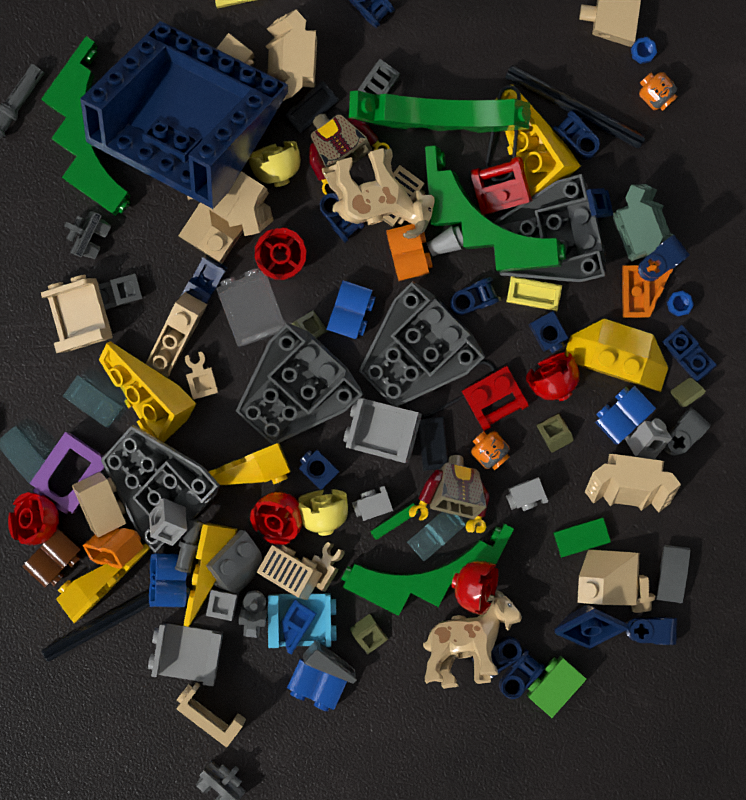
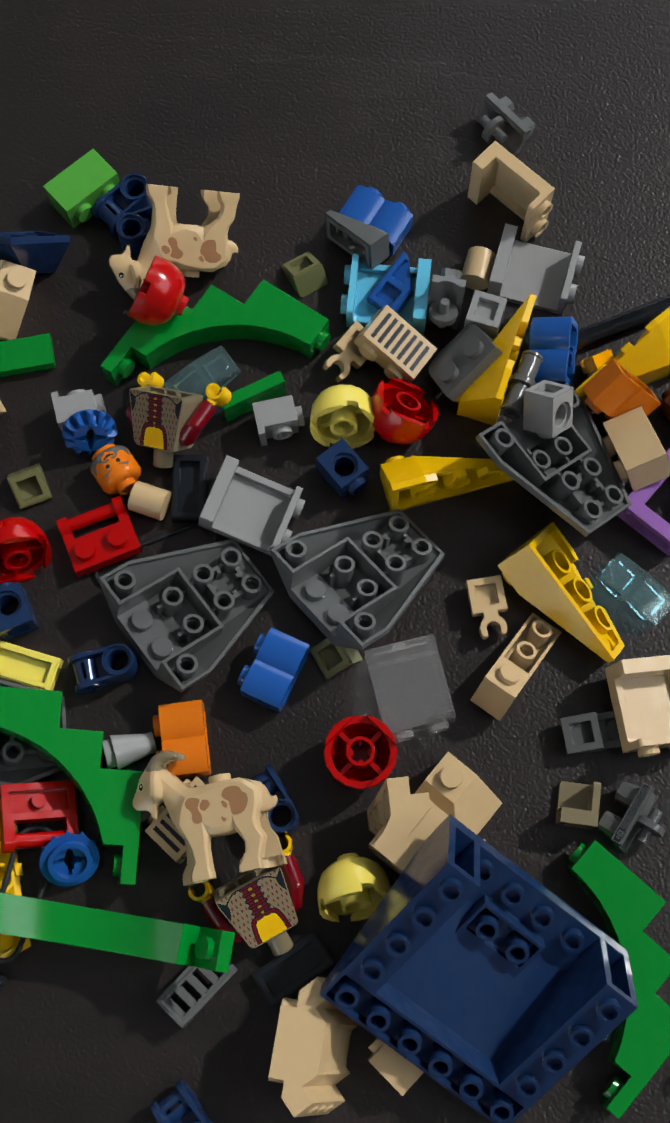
camera: 170 degrees left, 15 degrees down
(125, 239) = (578, 805): none -> dark tan panel
(134, 576) = (596, 361): none -> light orange tile
(205, 279) = (470, 734): dark blue slope -> none
(231, 650) = (478, 267): none -> tan piece
(461, 428) = (149, 500): none -> tan piece
(466, 157) = (82, 866): none -> blue gear
(514, 475) = (77, 425): none -> blue gear

